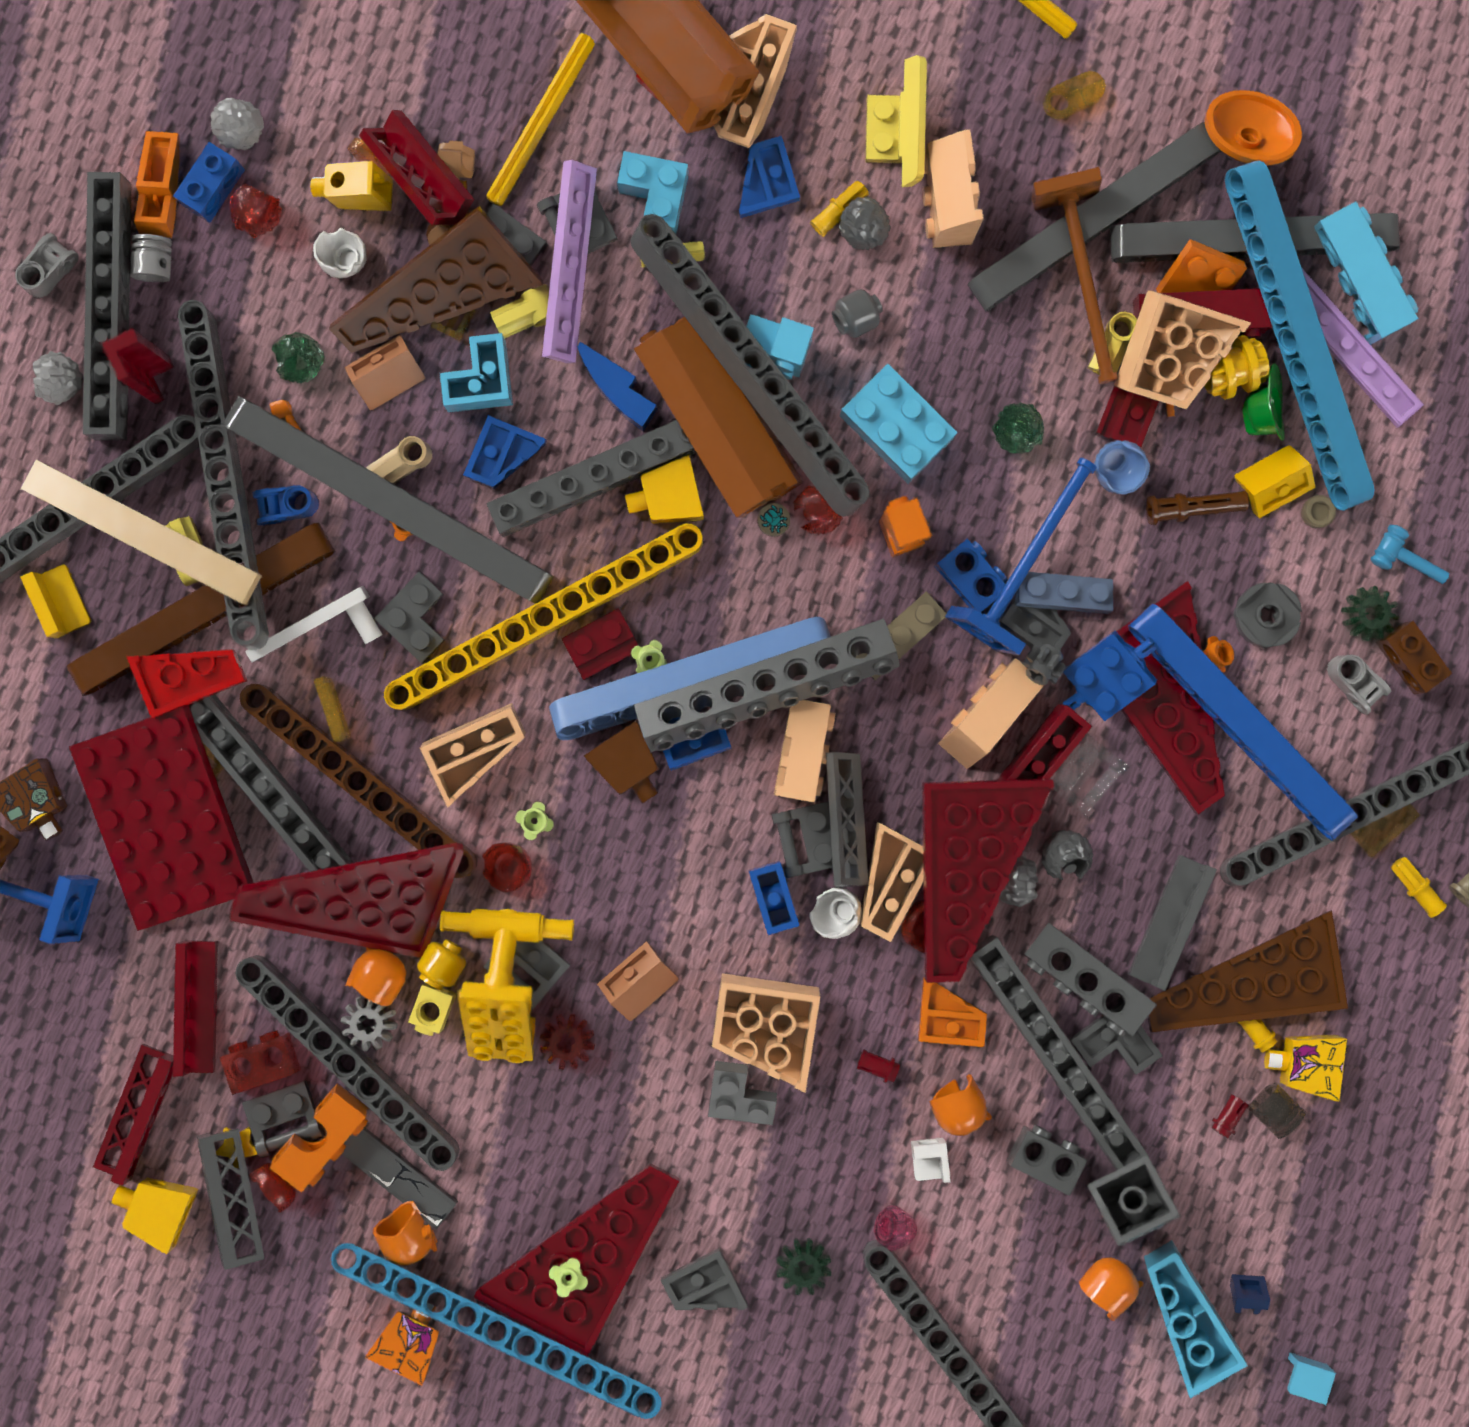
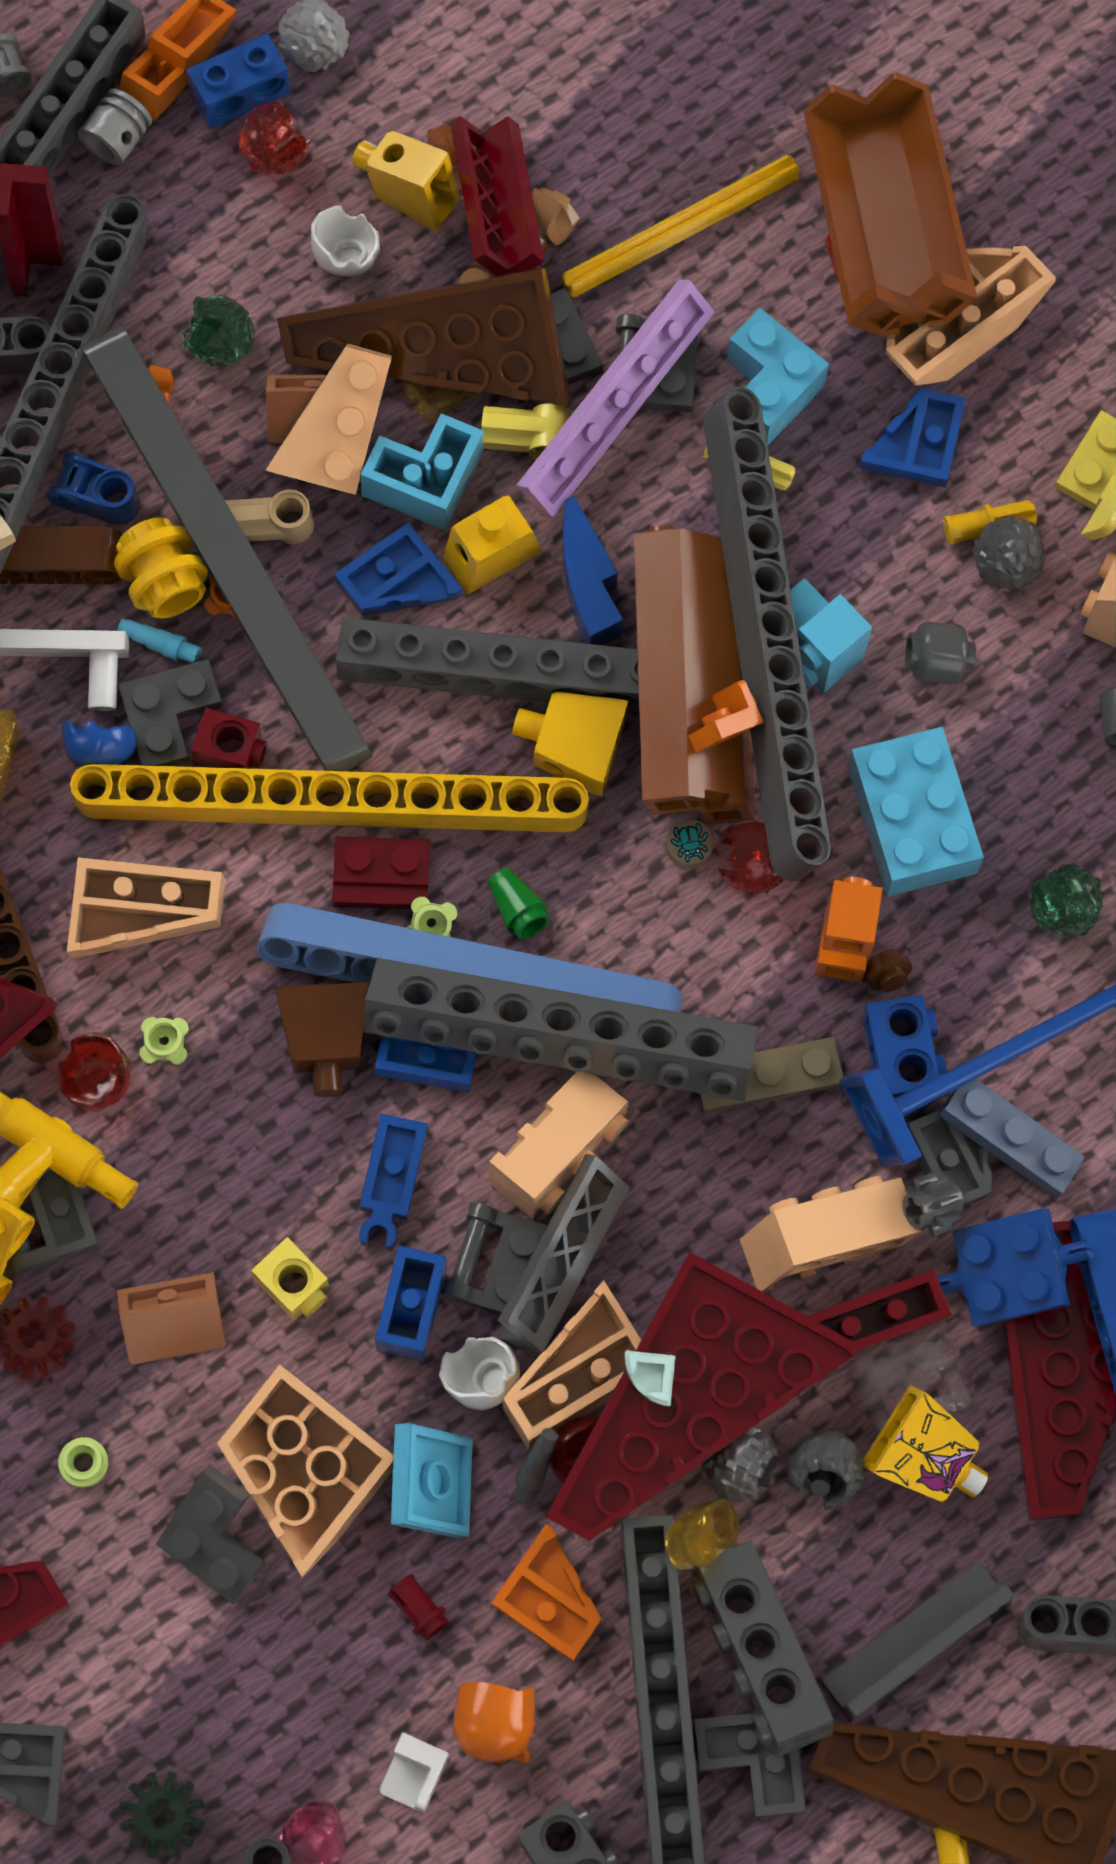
camera: 30 degrees right, 15 degrees down
(352, 530) = (160, 566): none -> yellow piece
(383, 576) = (168, 644): none -> medium azure animal
(386, 666) = (98, 744): none -> blue hair
(409, 382) = (337, 424): none -> light nougat wedge
(449, 618) = (217, 728): none -> dark red brick
(546, 401) = (494, 543): none -> yellow torso
(630, 1101) = (80, 1447): none -> yellowish green plate
(681, 927) = (289, 1259): none -> light yellow brick
(694, 617) = (519, 906): none -> green cone
(716, 824) = (391, 1175): none -> blue plate
(763, 434) = (735, 715): none -> orange bracket
(846, 994) = (431, 1480): none -> medium azure plate
(900, 952) = (534, 1469): none -> dark grey animal
(939, 531) = (888, 970): none -> reddish brown plate
(943, 868) = (651, 1375): none -> light aqua tile
(1019, 943) = (693, 1536): none -> clear yellow piece
(1117, 812) = (926, 1449): none -> yellow torso

